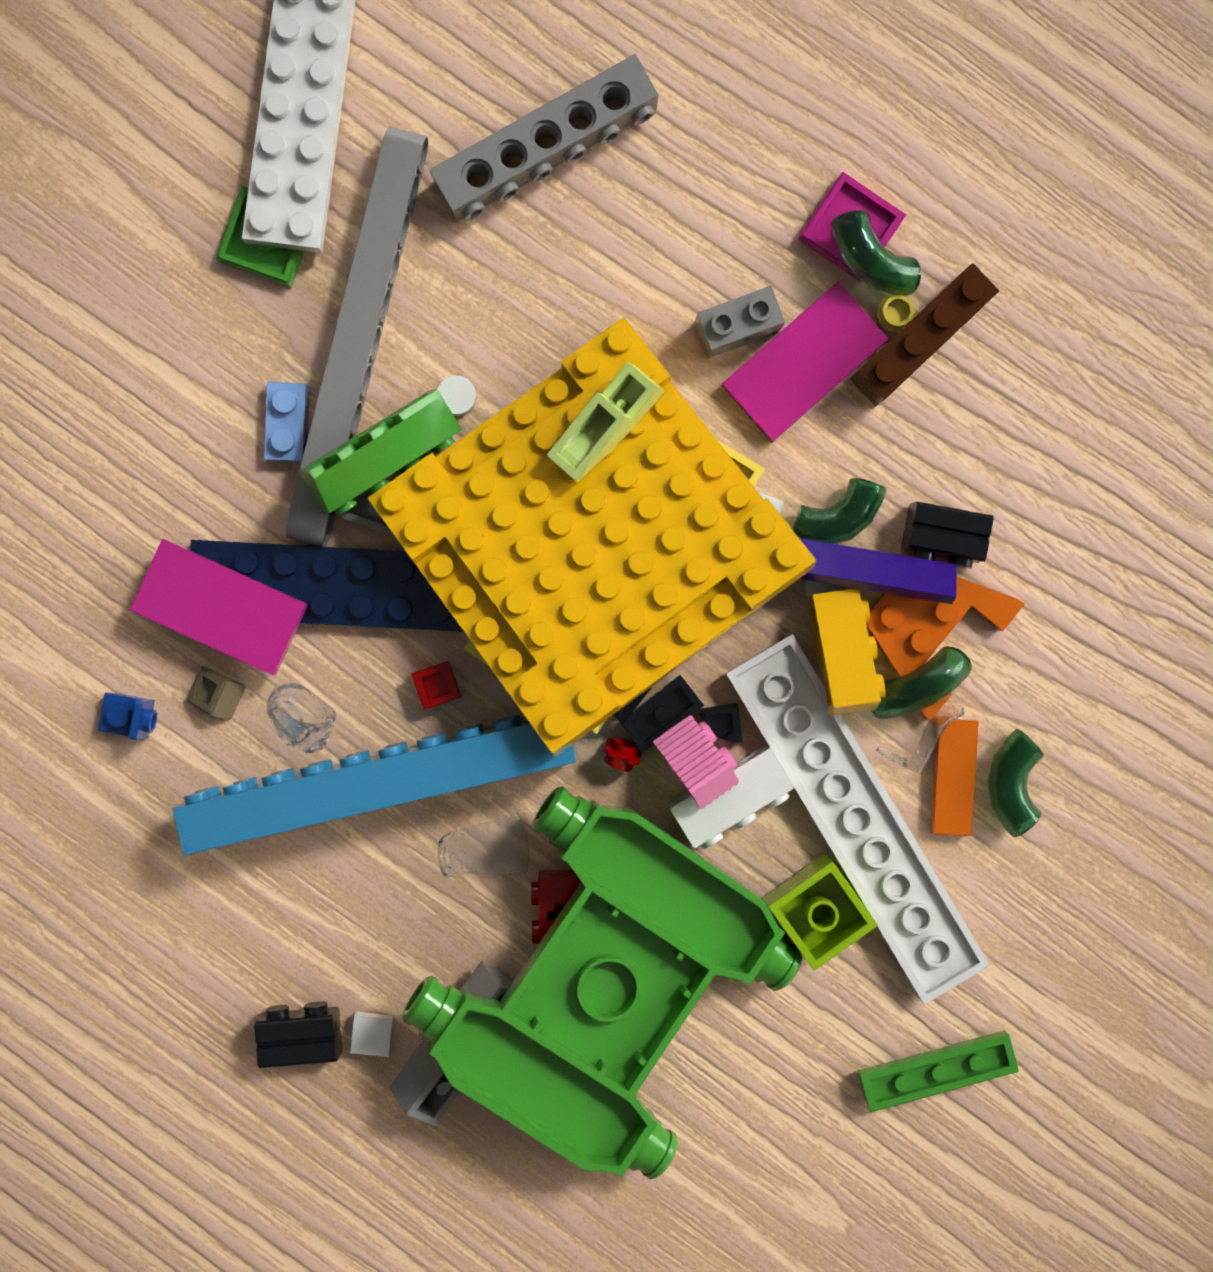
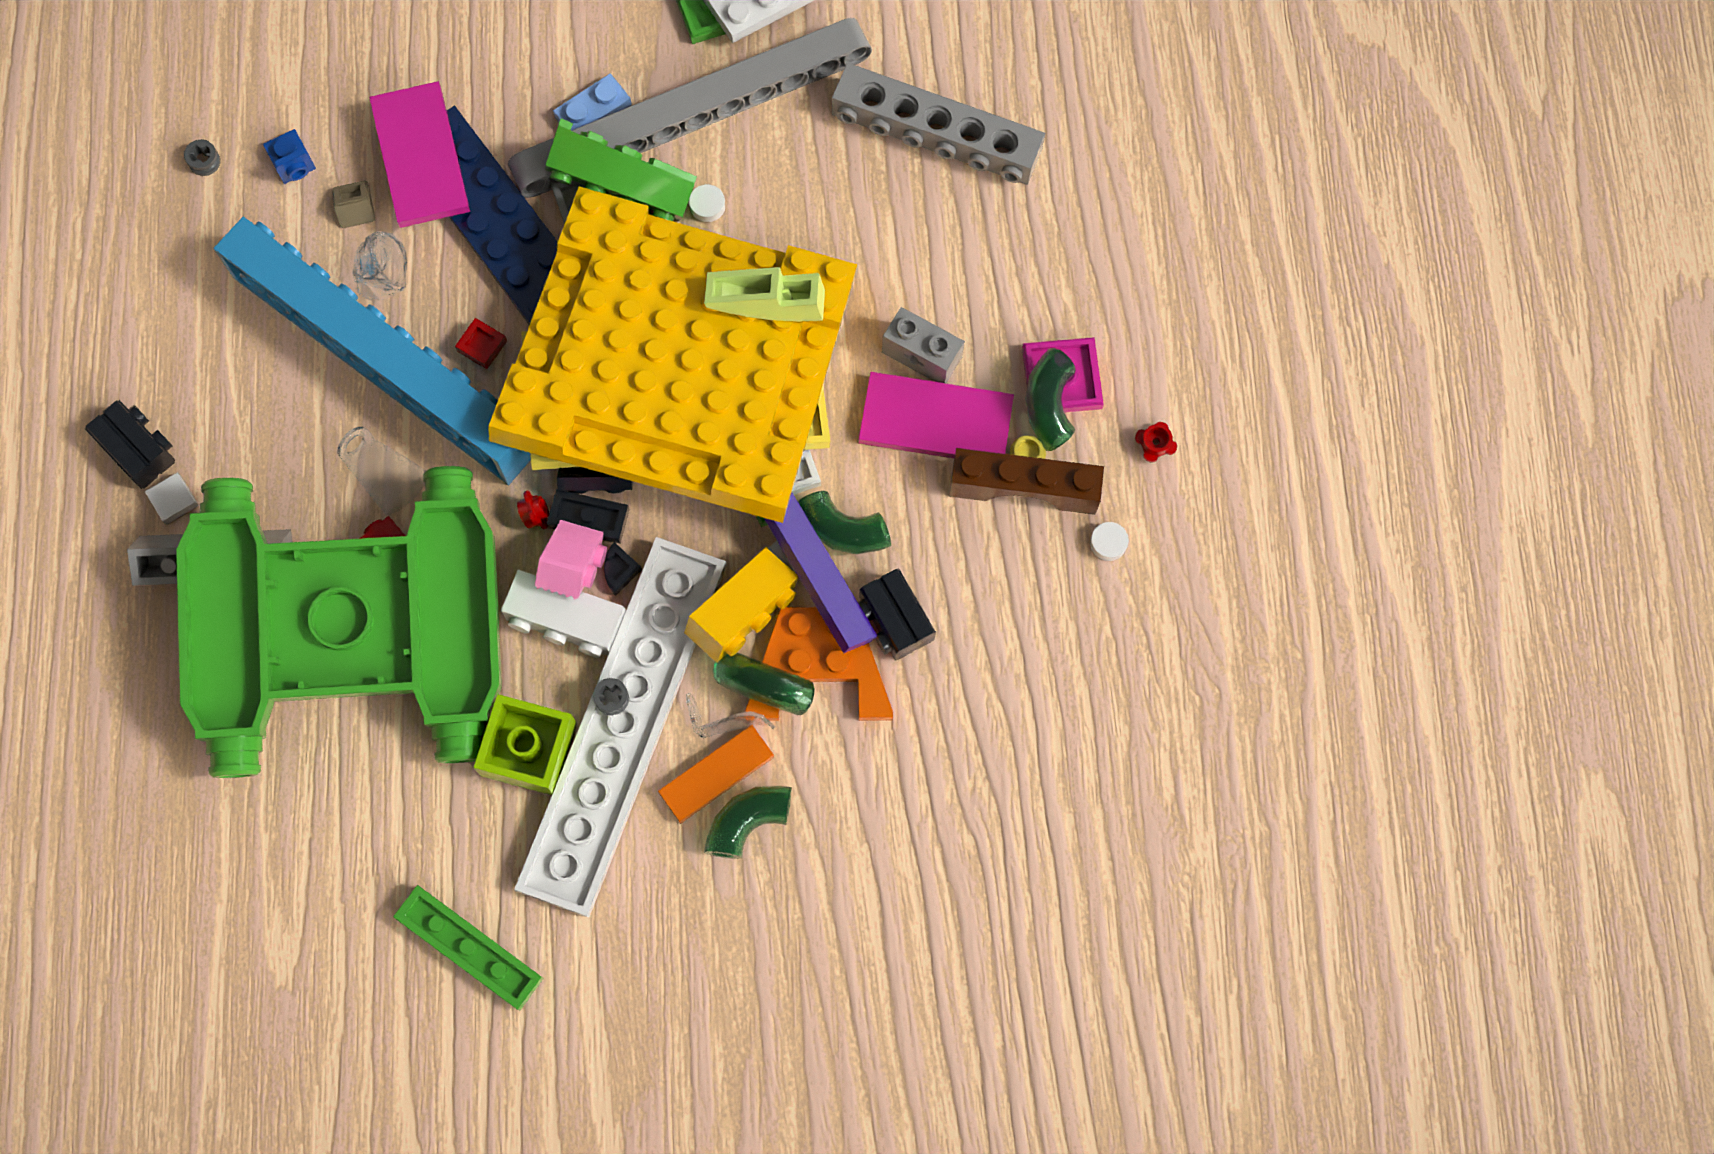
camera: 45 degrees right, 15 degrees down
(60, 799) = (196, 165): none -> dark grey bush
(845, 822) = (610, 708): none -> dark grey bush
(979, 190) = (1160, 432): none -> red plate
(1021, 309) = (1109, 541): none -> white tile

